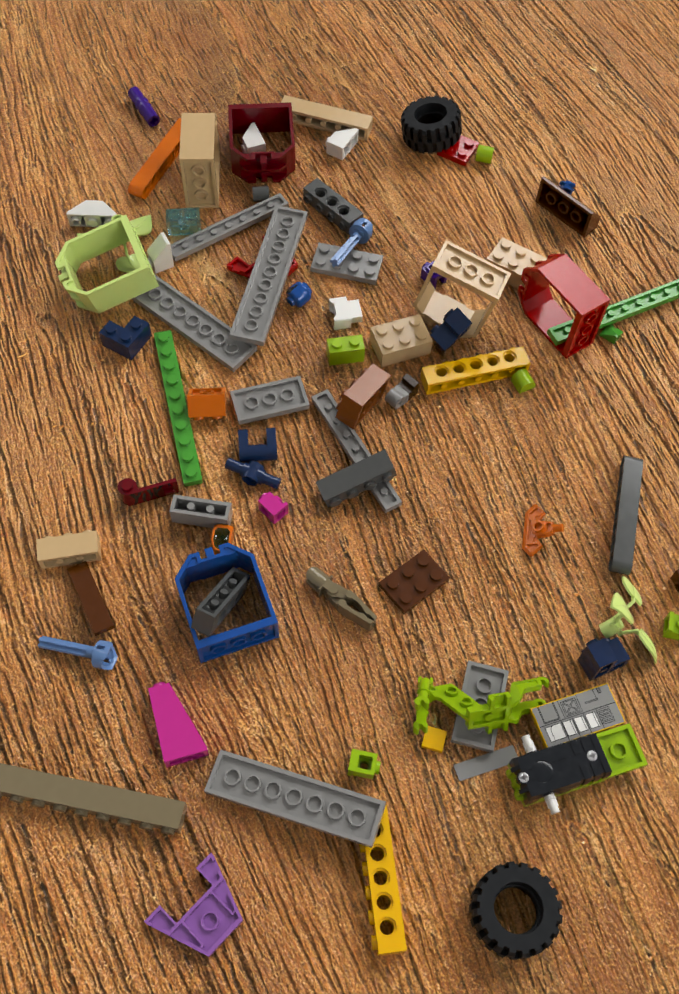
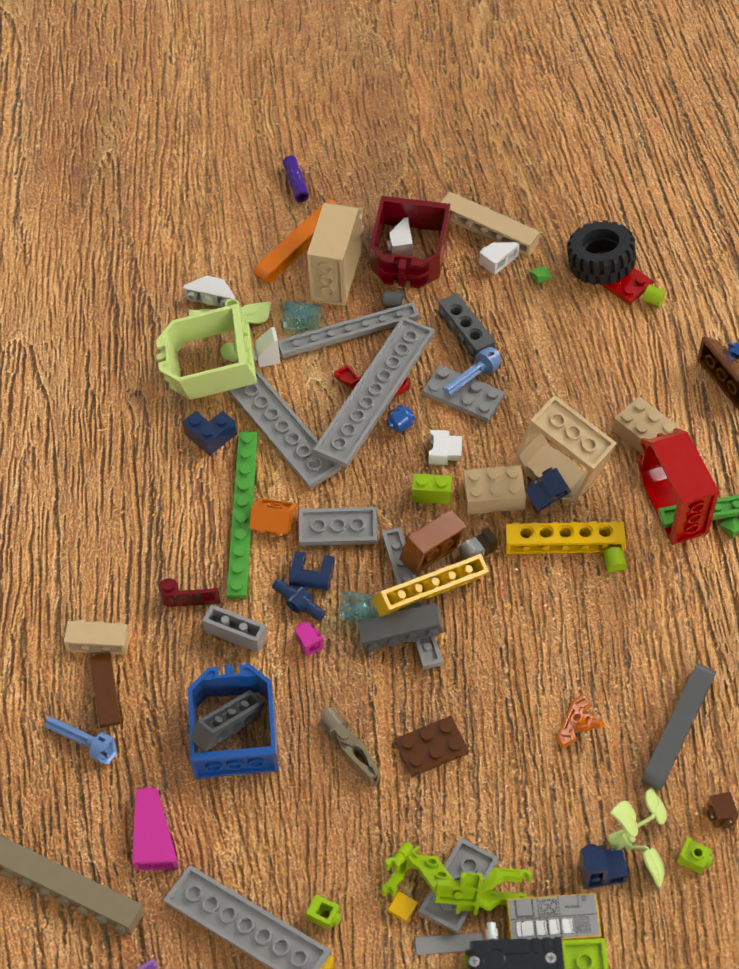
camera: 20 degrees right, 5 degrees down
(220, 535) = (249, 655): rock -> none
(313, 467) = (357, 606): none -> clear light blue brick
(372, 435) = (430, 585): none -> yellow brick
(382, 153) = (540, 274): none -> bright green slope

